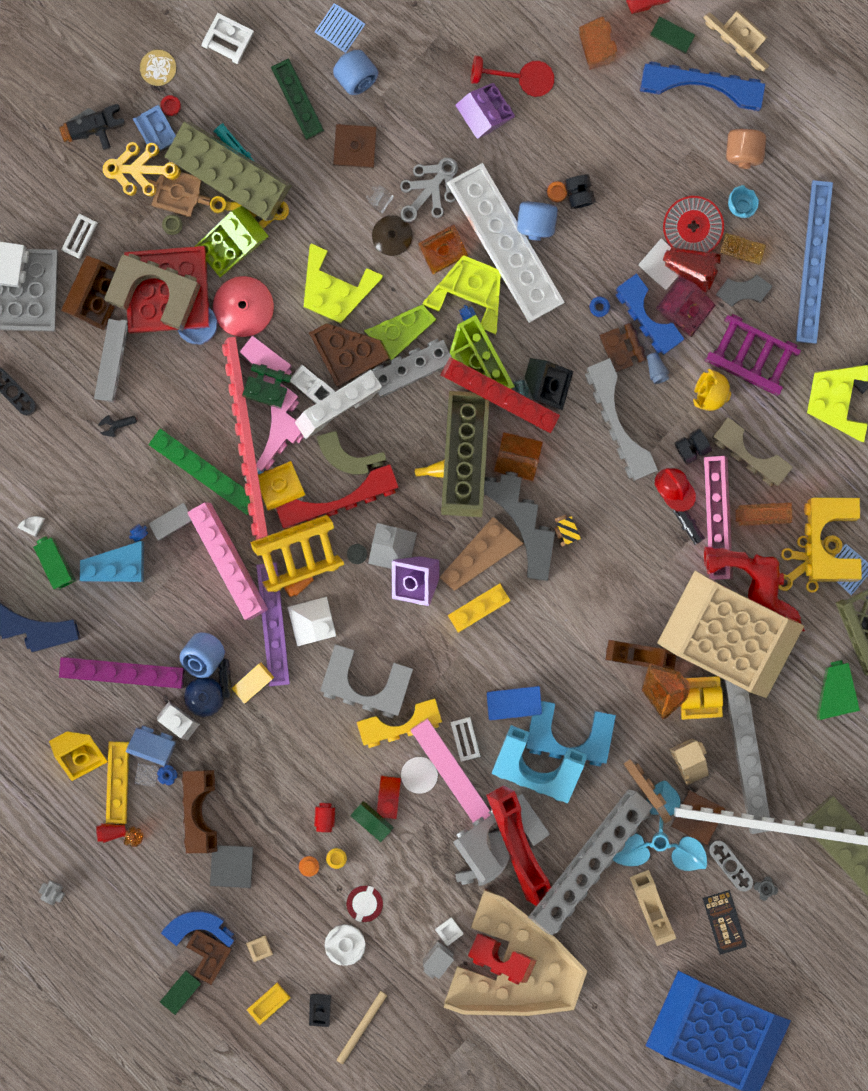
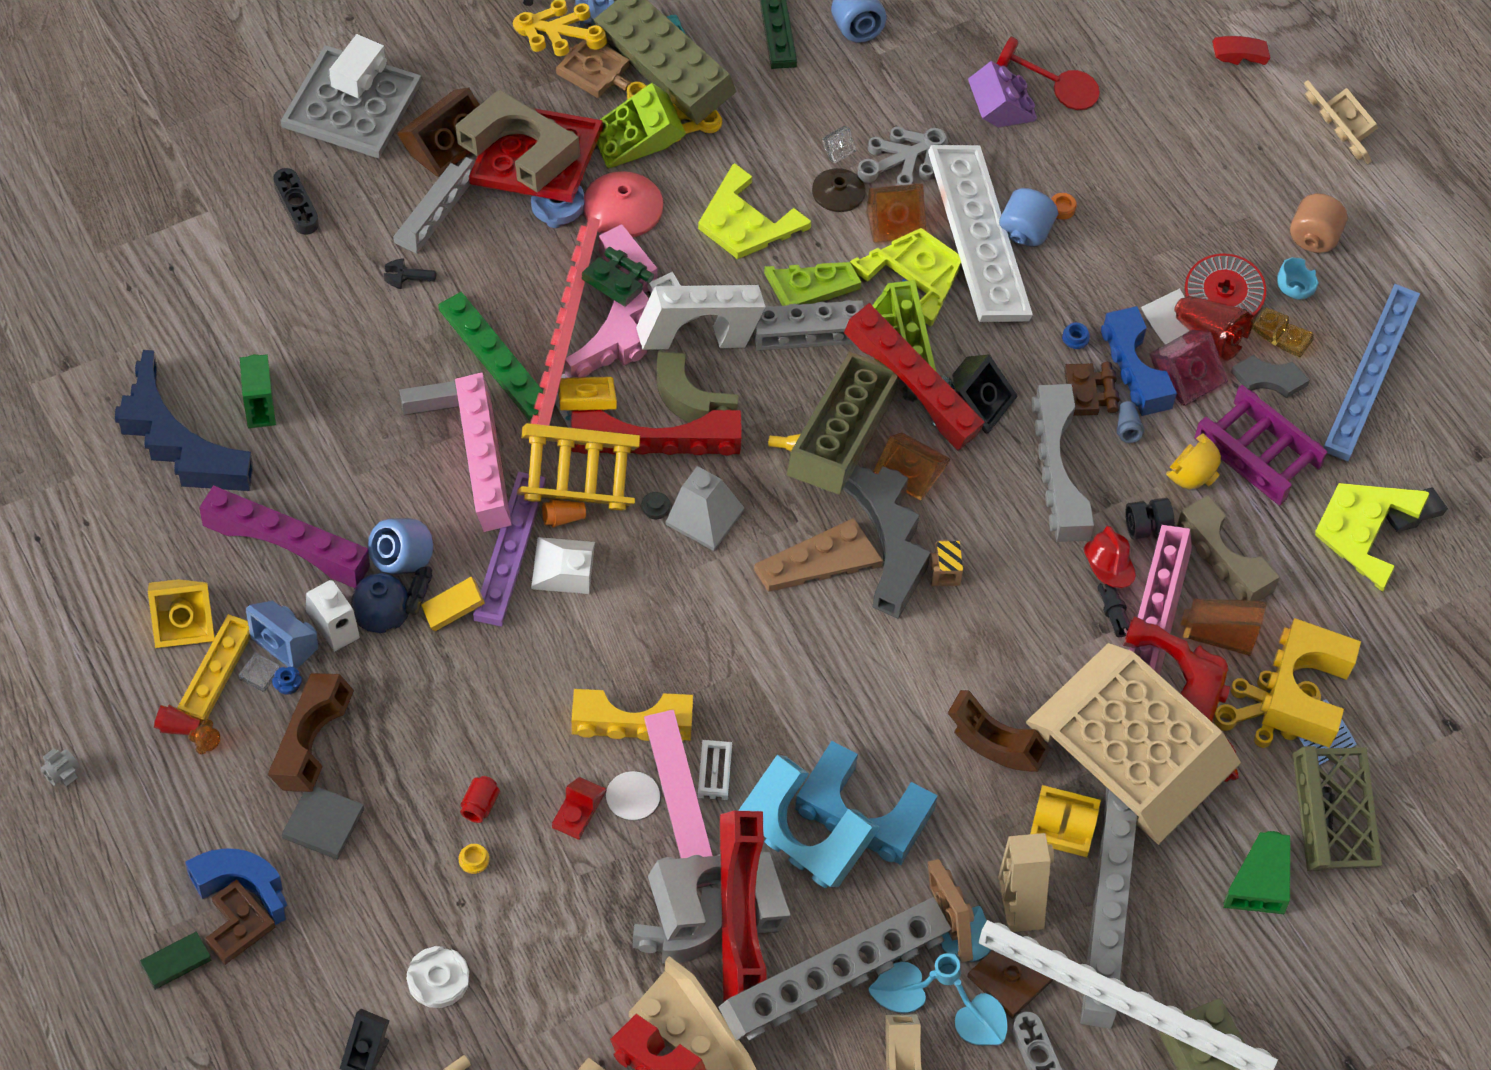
camera: 15 degrees right, 30 degrees down
(32, 525) = (249, 345): white tile -> none
(92, 228) = (457, 78): white tile -> none
(117, 565) = (333, 415): dark azure wedge -> none
(138, 532) = (381, 391): blue plate -> none
(172, 224) = (572, 96): olive plate -> none
(259, 948) = (314, 941): tan tile -> none
(268, 1003) = (294, 1018): yellow tile -> none
(309, 866) = (431, 855): orange plate -> none
(337, 684) = (624, 683): light grey arch -> none
(347, 352) = (724, 267): reddish brown plate -> none
(354, 146) = (828, 88): reddish brown plate -> none
(364, 903) = (488, 934): sticker -> none
(372, 821) = (543, 826): dark green tile -> none
(415, 579) = (721, 551): medium lavender slope -> none
(437, 960) = (564, 1020): light grey arch -> none
(449, 931) = (595, 1005): white plate -> none
(478, 608) = (774, 613): yellow arch -> none
(514, 703) = (800, 740): blue sticker -> none
(585, 196) = (1092, 207): black wheel -> none
(597, 43) = (1165, 69): clear orange slope -> none
(665, 689) = (1018, 781): clear orange slope -> none
(672, 35) = (1259, 96): dark green tile -> none
(743, 93) = (1235, 131): blue arch -> none

